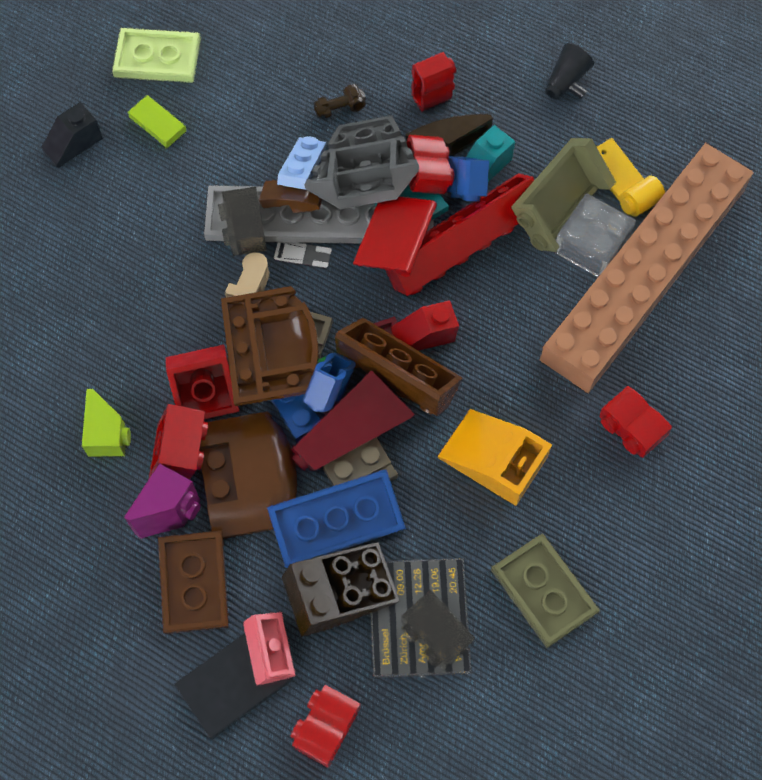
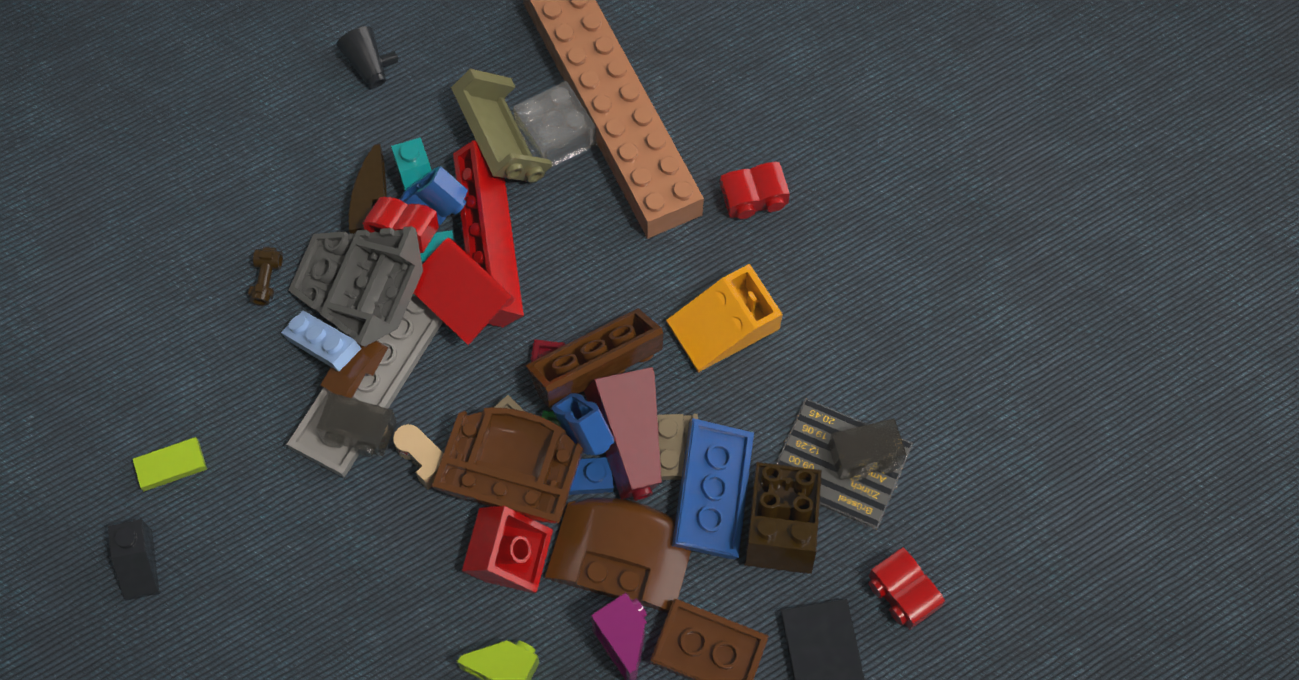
camera: 65 degrees left, 0 degrees up
(156, 55) = (83, 429): yellowish green tile -> none
(179, 440) = (564, 599): red slope -> none
(268, 648) = (810, 607): coral slope -> none
(303, 254) = (414, 392): sticker -> none
(428, 326) = (565, 313): red slope -> none
(433, 81) = (304, 176): red brick -> none
(544, 590) = (868, 345): olive tile -> none
(631, 188) = (526, 70): yellow door -> none

